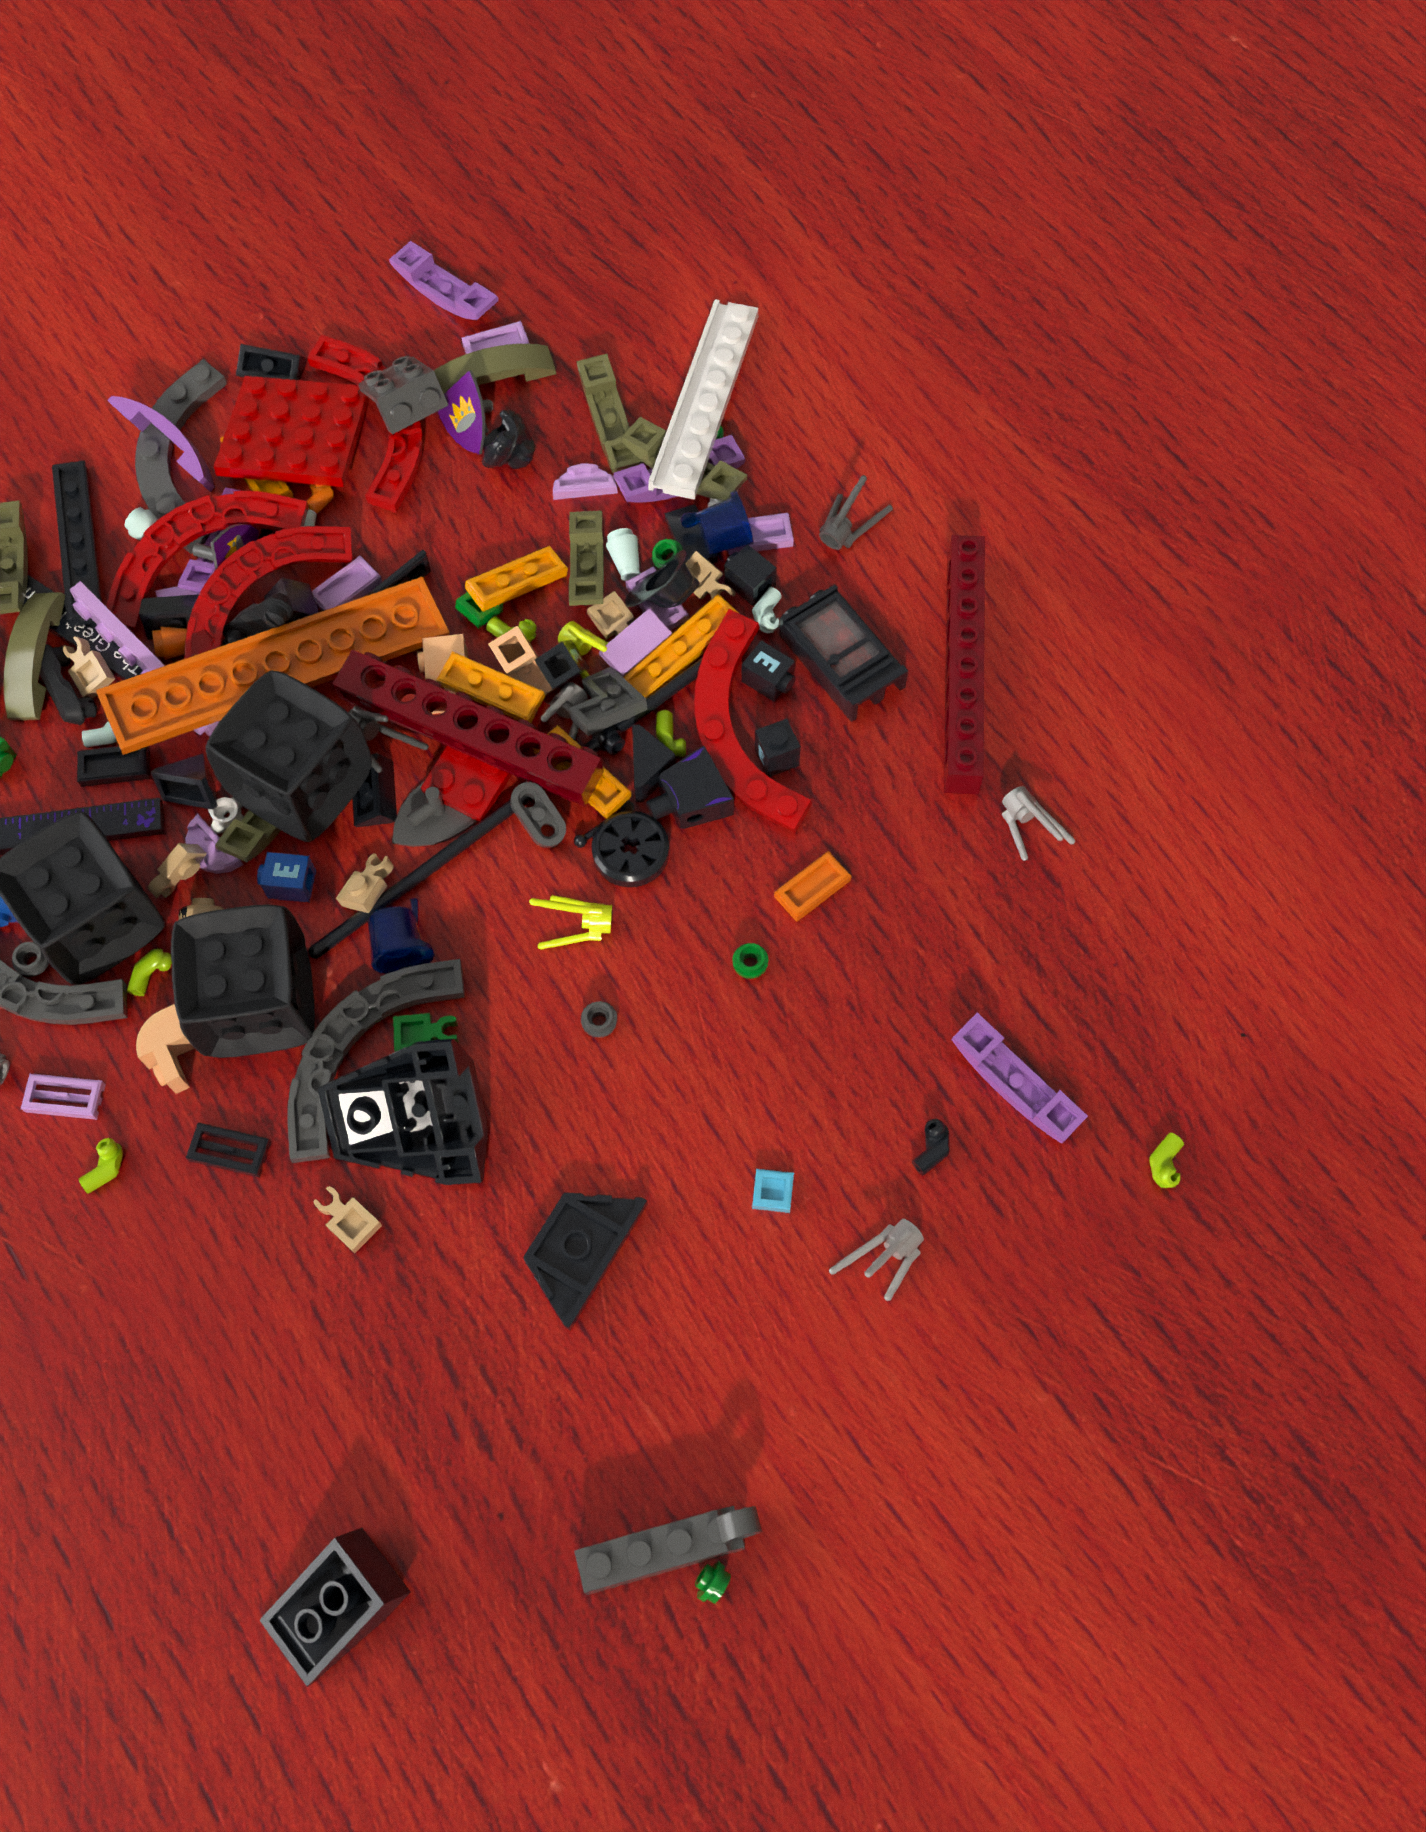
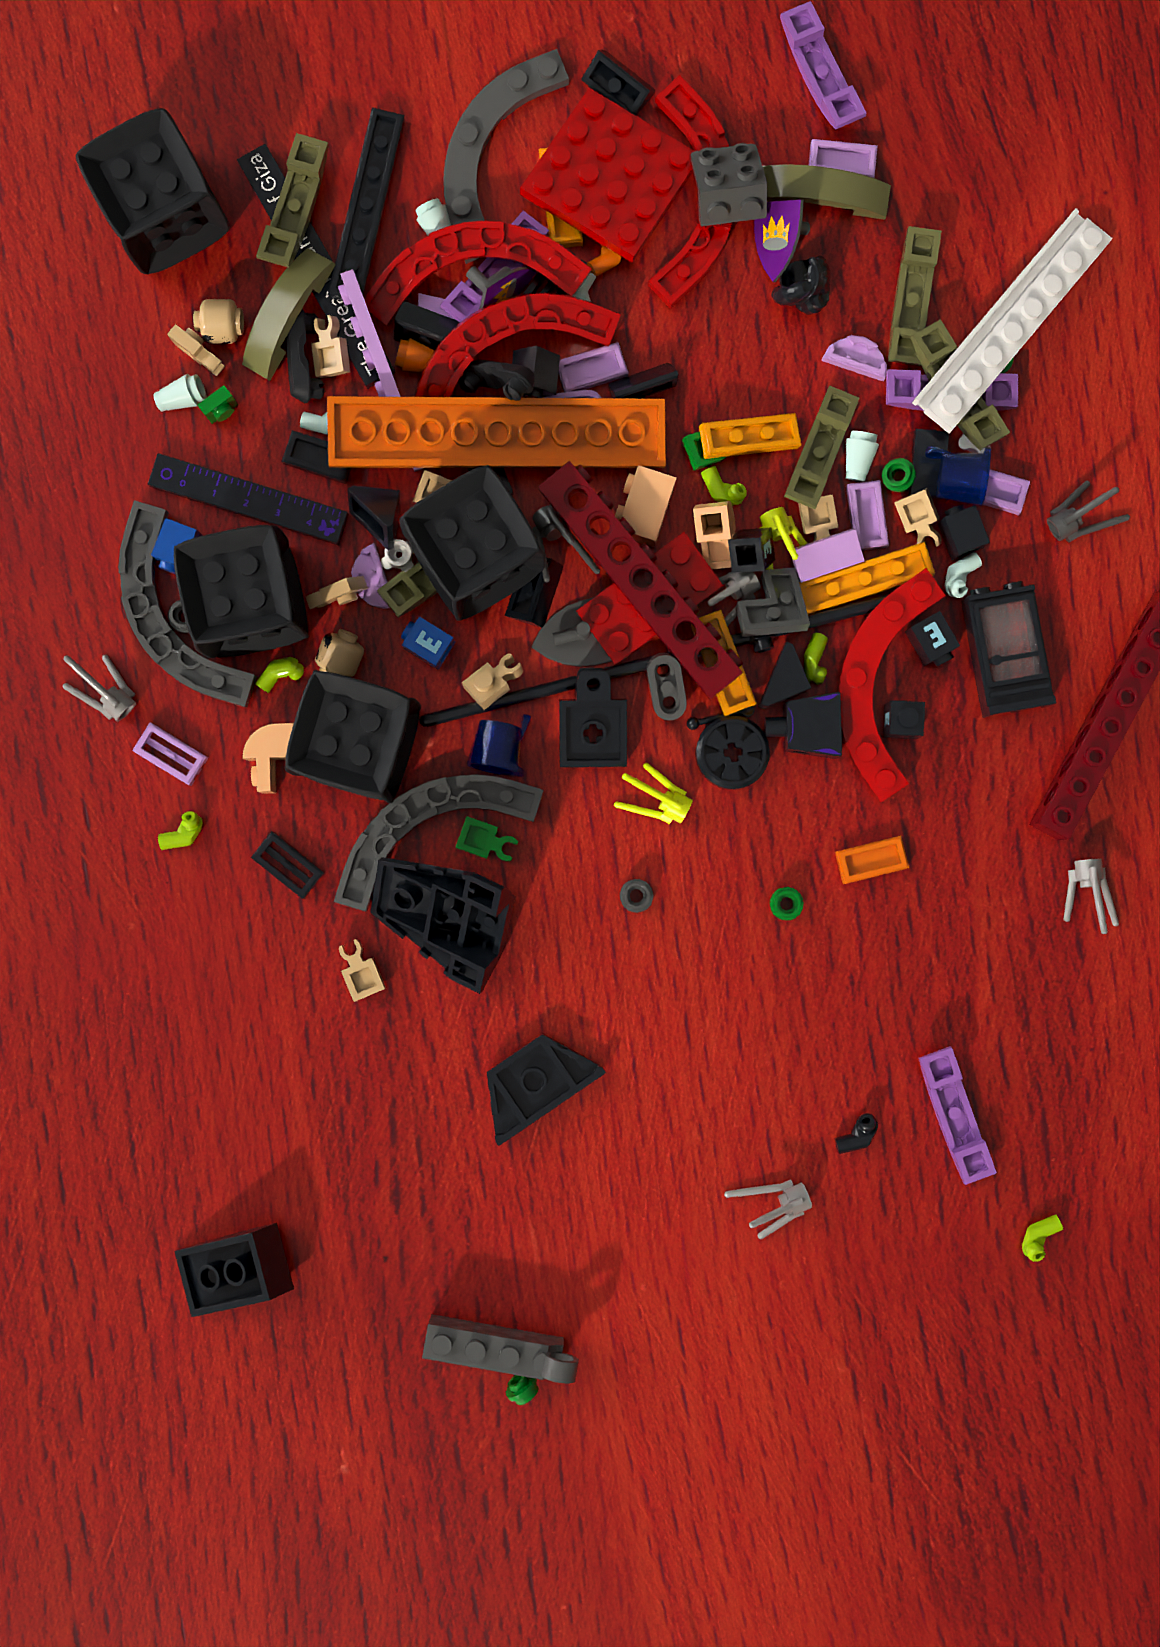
camera: 25 degrees right, 20 degrees up
(142, 416) = (504, 169): medium lavender slope -> none
(476, 861) = (597, 708): none -> black plate
(490, 687) = (677, 548): light orange tile -> none
(667, 585) = (879, 510): black piece -> none
(773, 1190) = (711, 1108): medium azure tile -> none

